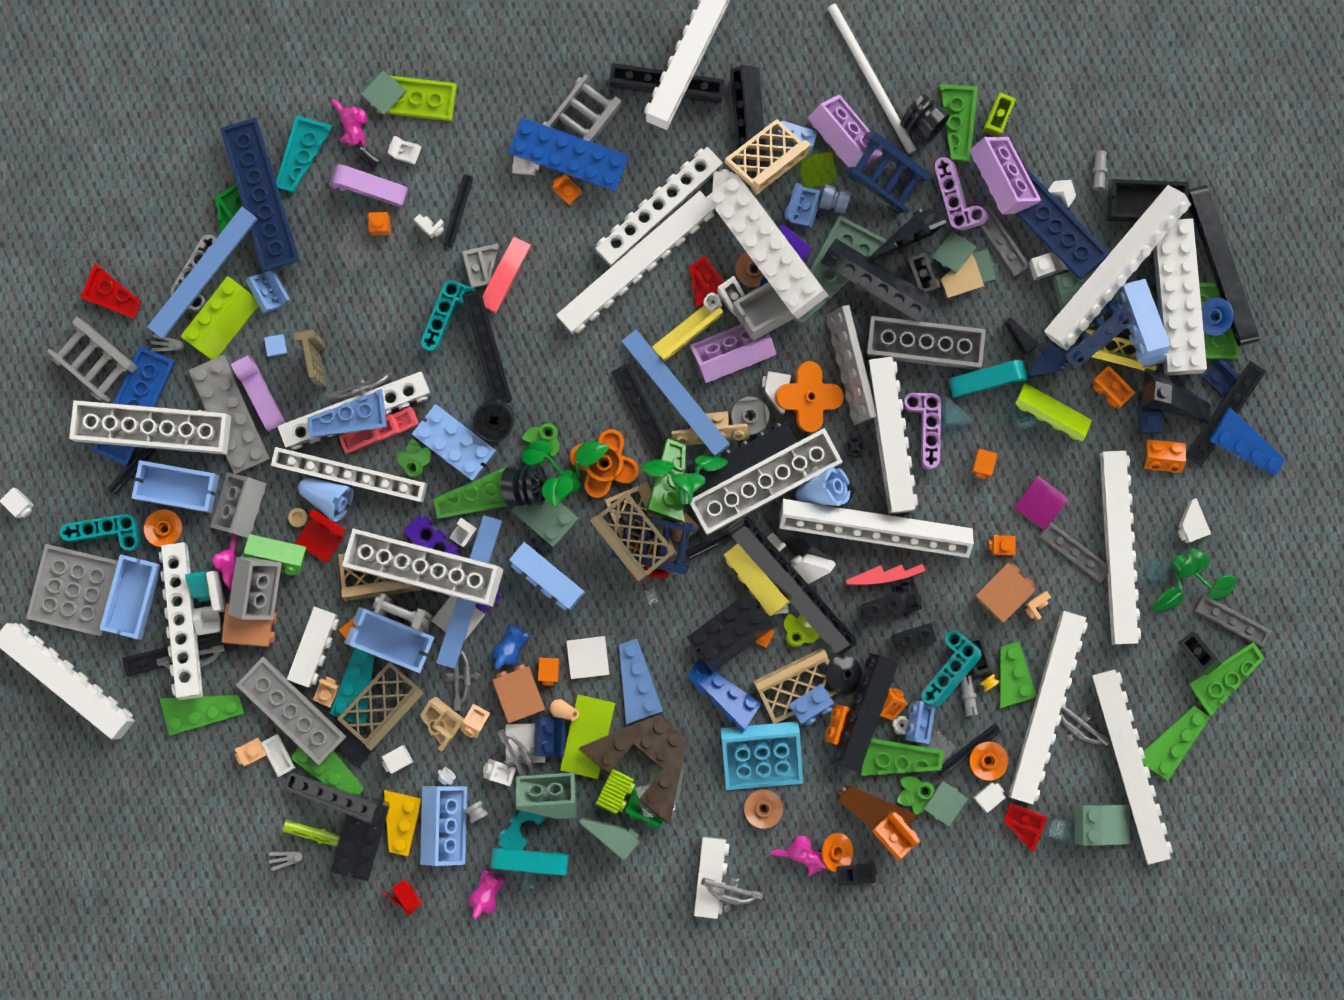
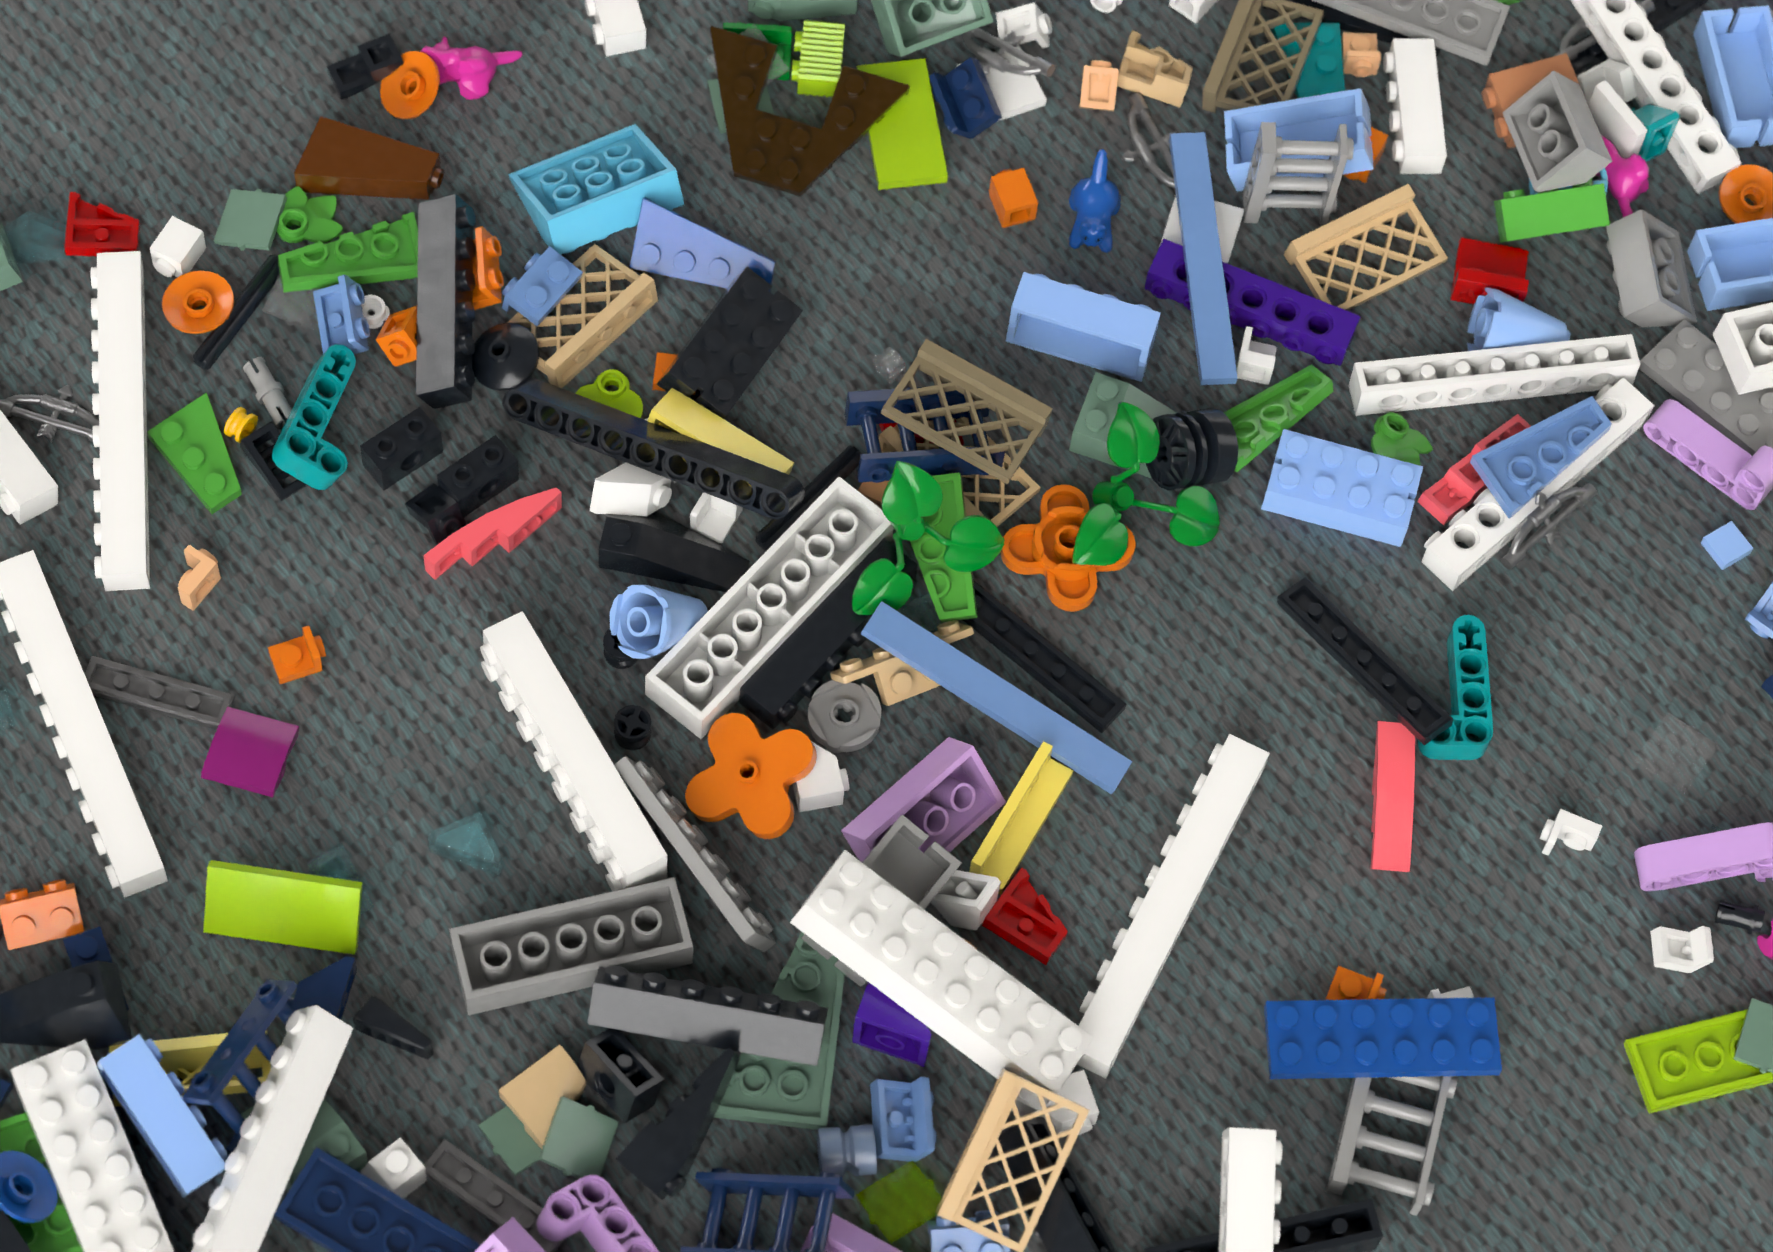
camera: 150 degrees right, 20 degrees down
(298, 517) = (1543, 292): tan tile -> none
(312, 344) = (1673, 530): dark tan fence -> none
(379, 224) = (1658, 802): orange brick -> none
(423, 567) = (1298, 255): white brick -> none
(458, 210) = (1531, 883): black axle -> none
(480, 265) = (1445, 801): light grey wing -> none
(493, 431) = (1293, 539): black wheel -> none
(518, 693) = (1046, 145): nougat brick -> none
(538, 433) = (1202, 557): bright green plate -> none
(561, 709) = (962, 144): light nougat cone -> none
(587, 657) = (955, 242): white tile -> none
(638, 688) = (851, 226): medium blue wing -> none
(670, 204) = (1219, 901): white brick -> none
(707, 301) = (1004, 874): white plate -> none
(768, 818) = (557, 98): nougat dish -> none
(876, 528) = (538, 590): white brick -> none
(896, 835) = (322, 121): orange bracket -> none
(927, 431) = (508, 800): lavender beam -> none
(984, 463) = (381, 779): orange brick -> none
(988, 378) = (422, 925): teal beam -> none
(1005, 592) = (264, 576): nougat brick -> none
(1112, 387) = (182, 997): orange bracket -> none

